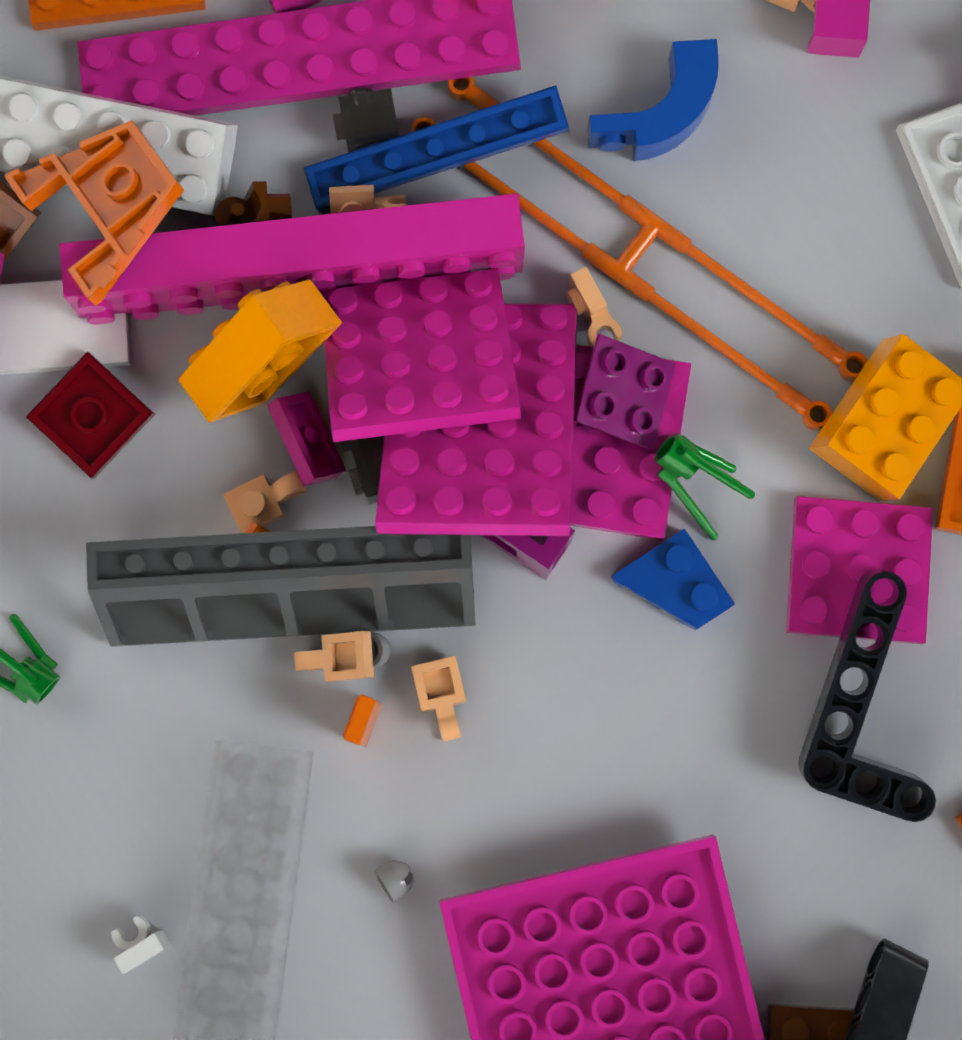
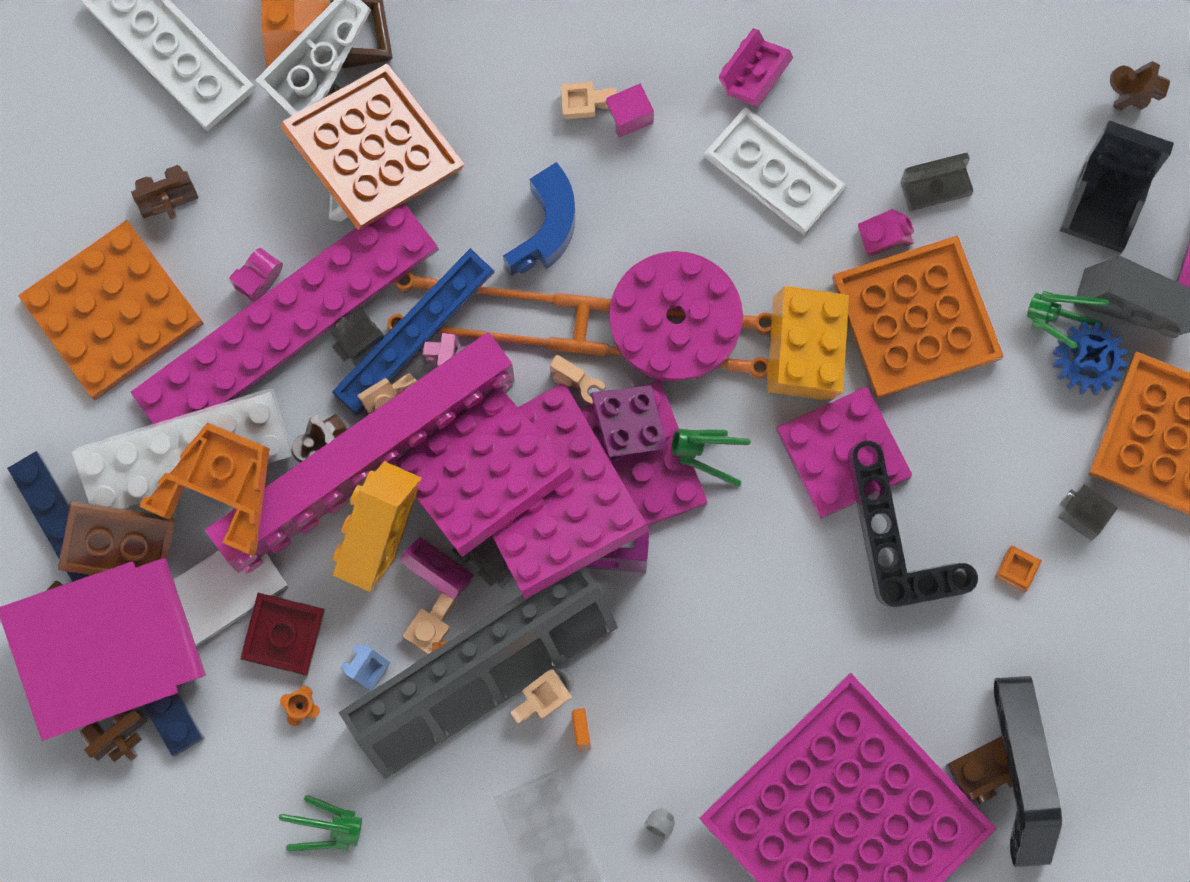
camera: 30 degrees left, 5 degrees down
(56, 497) = (290, 702): none -> orange plate
(161, 506) = (366, 666): none -> light blue tile
(438, 689) = (618, 682): light nougat plate -> none
(454, 188) = (441, 352): none -> bright pink tile
(677, 581) = (732, 525): blue wing -> none
(760, 254) = (669, 349): none -> dark pink plate

